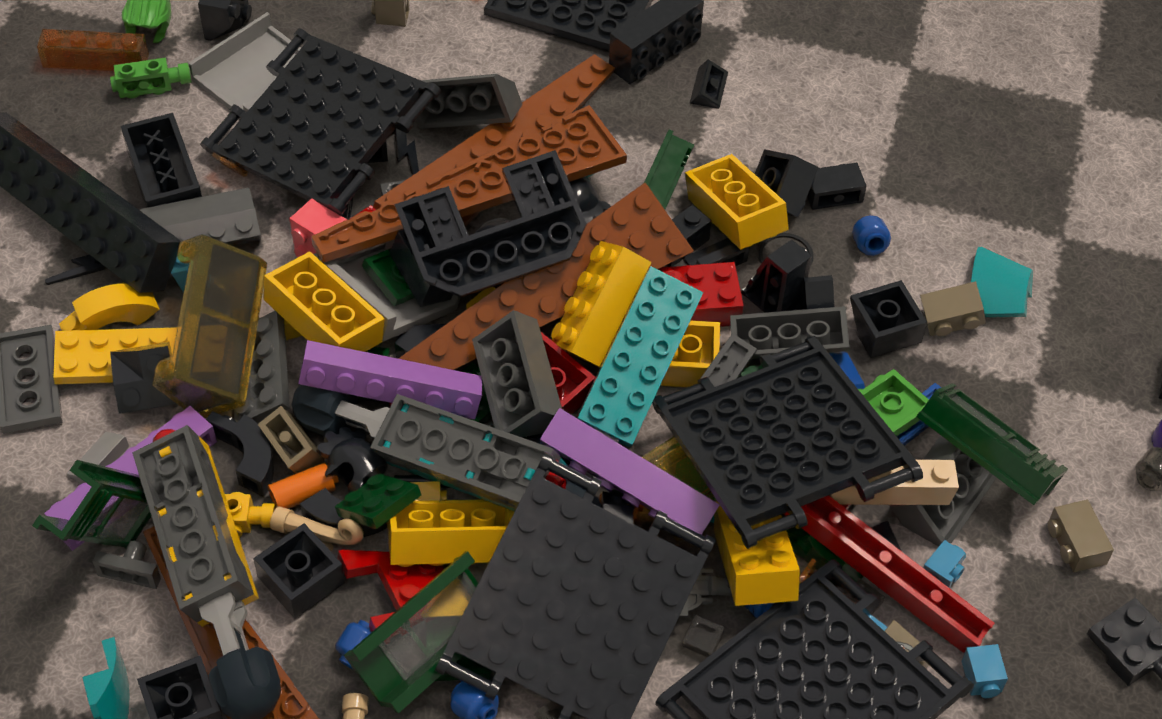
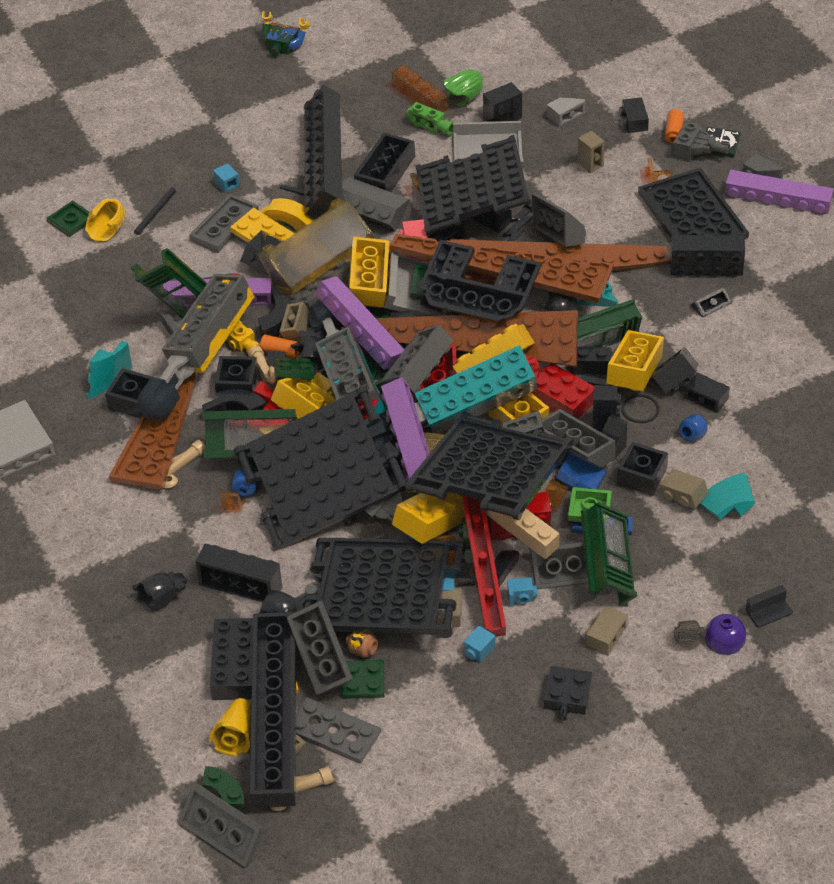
camera: 50 degrees right, 5 degrees down
(333, 600) = (235, 401): none -> black arch

